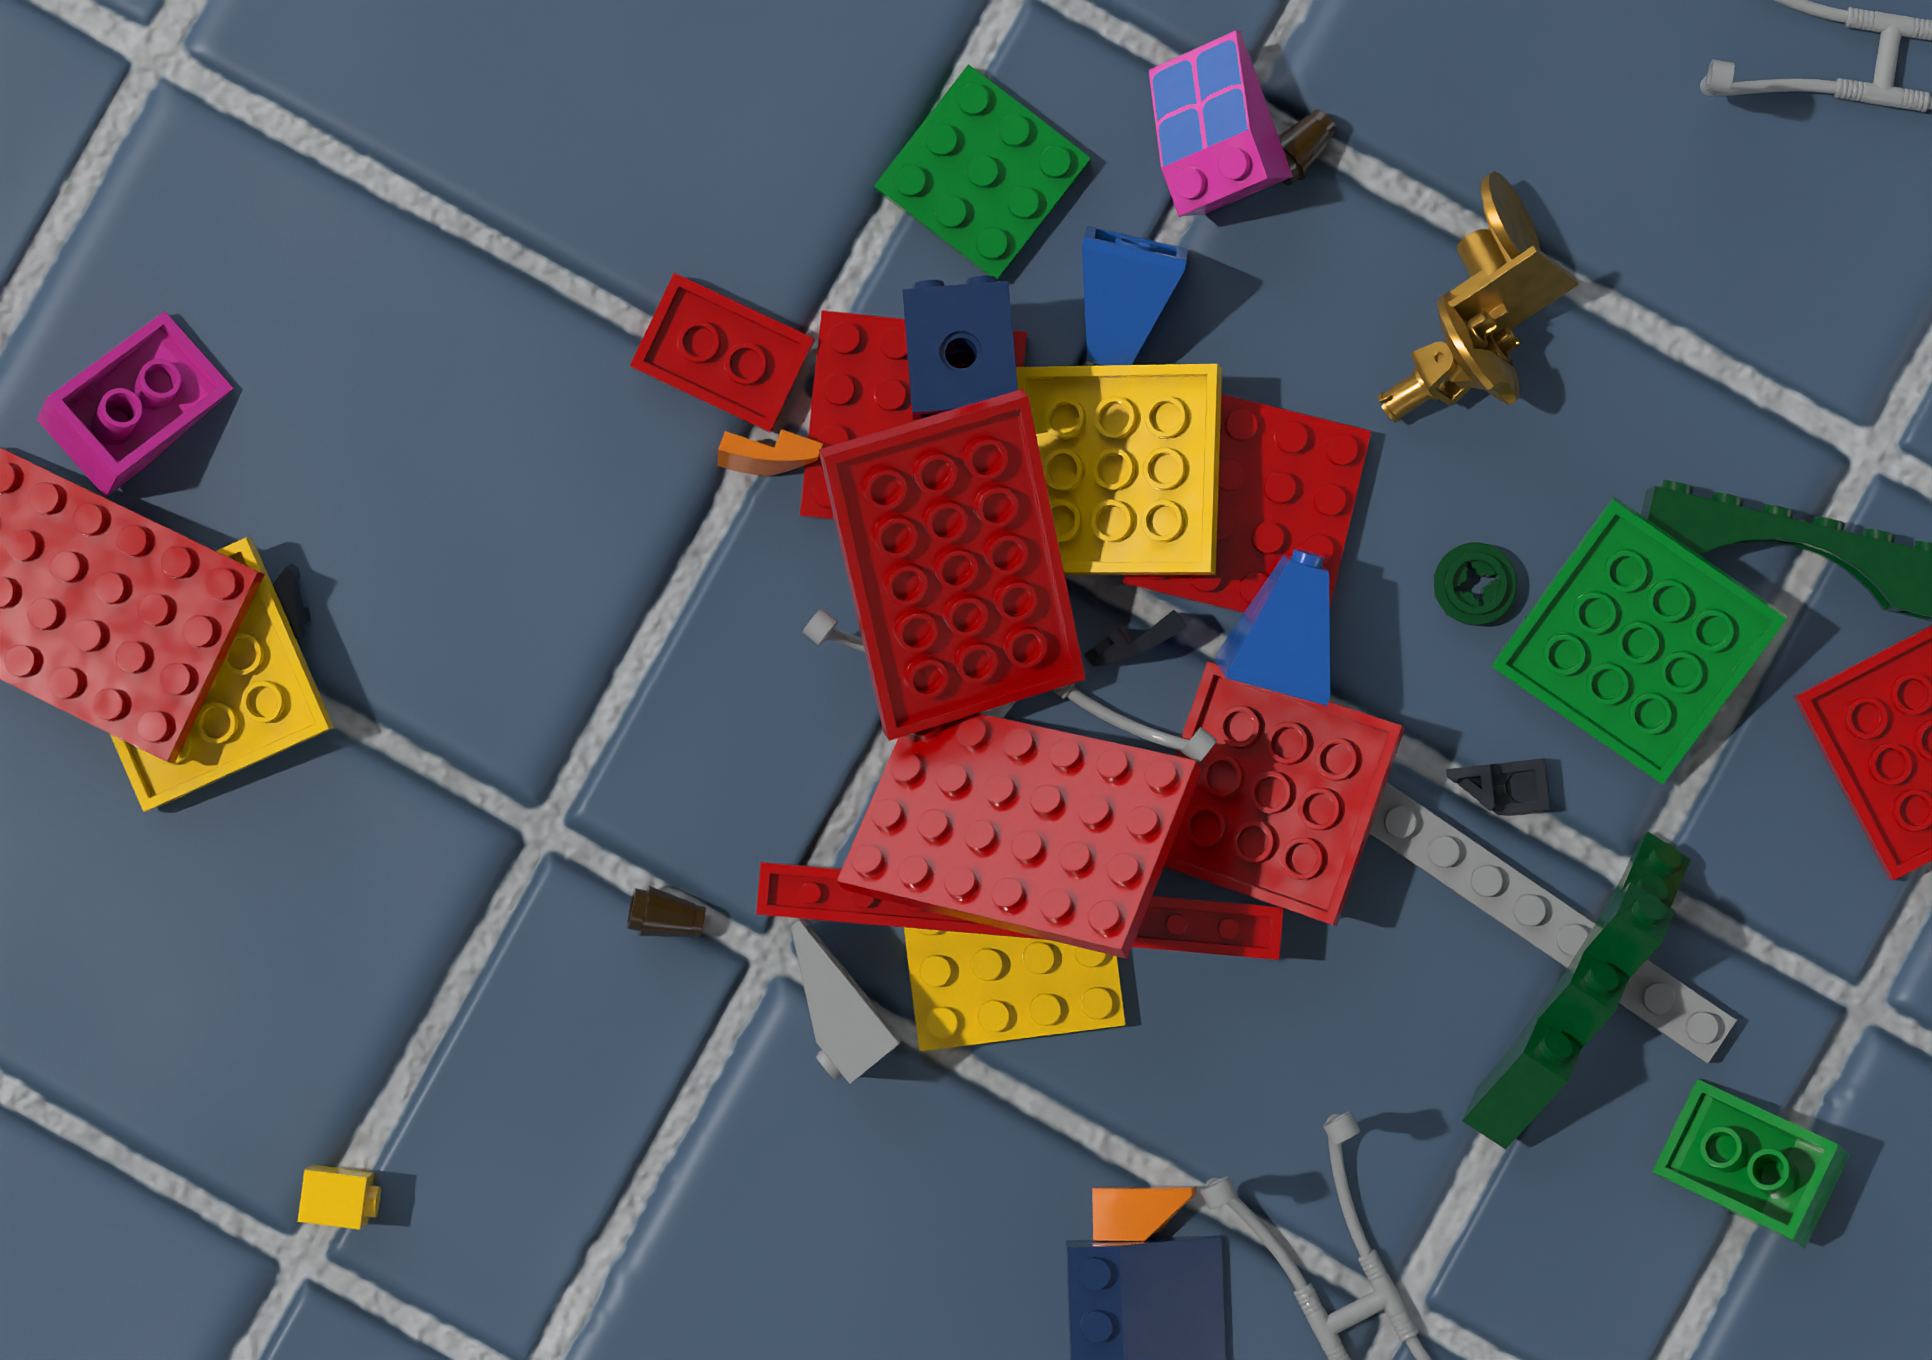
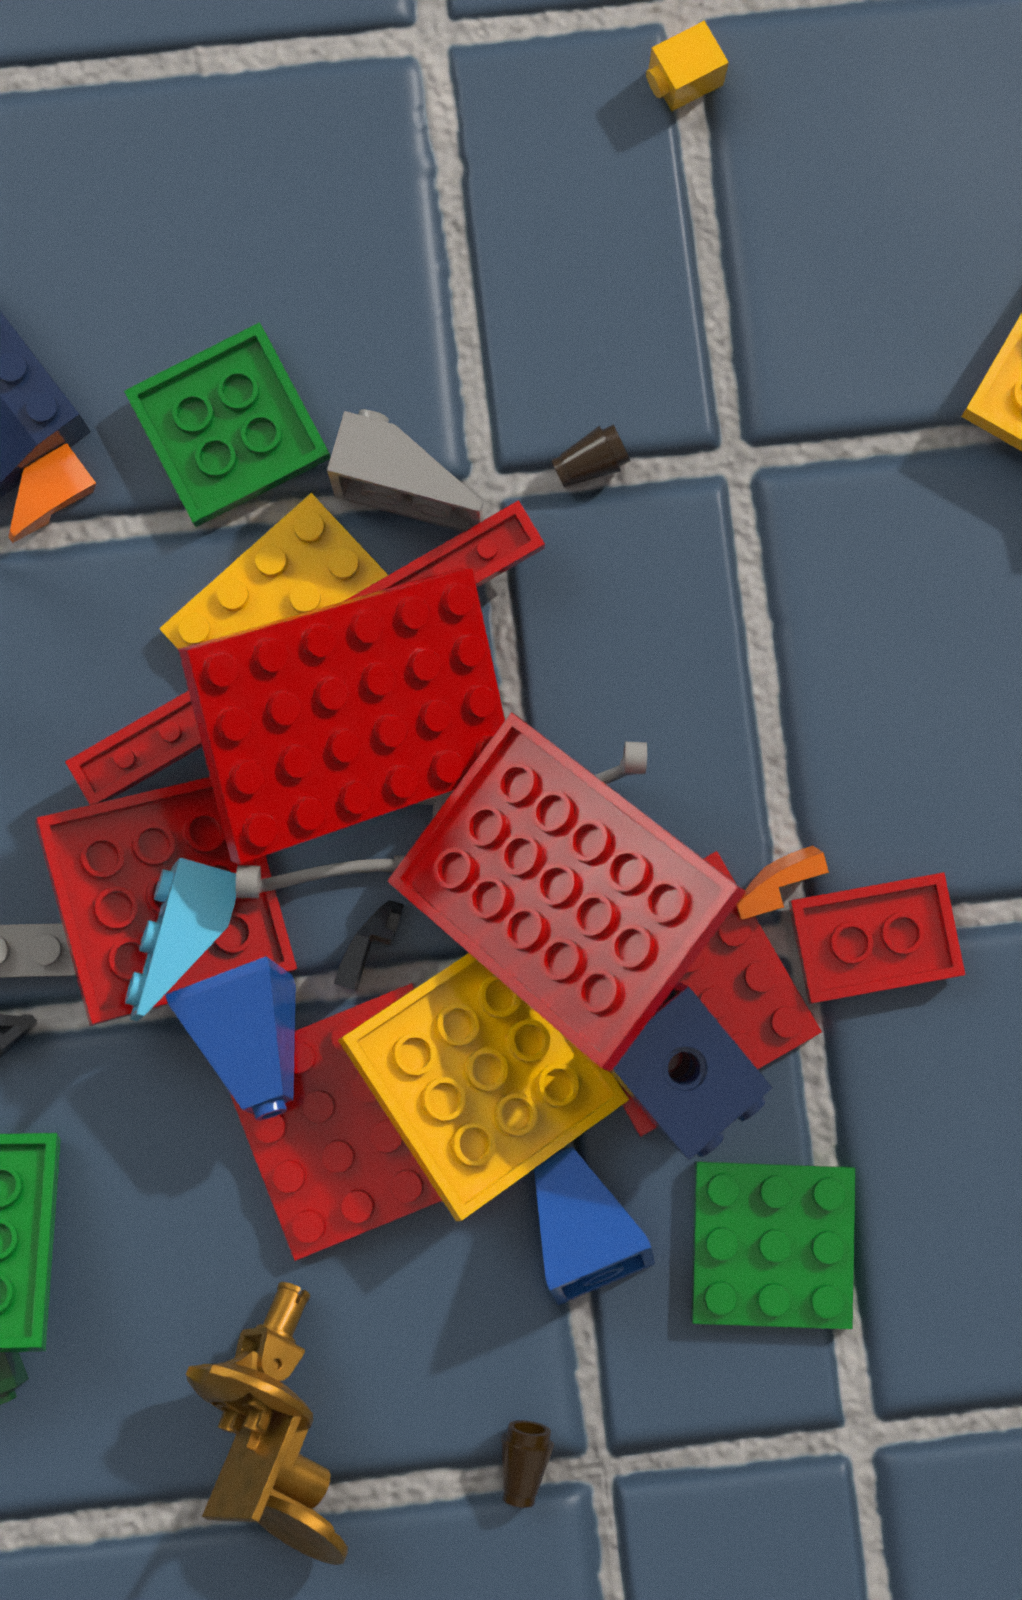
camera: 145 degrees right, 5 degrees down
(948, 1160) = (227, 424): none -> green plate
(1214, 127) = (608, 1426): slope -> none
(1269, 752) = (192, 916): none -> medium azure slope
(1484, 561) = (94, 1196): dark green gear -> none

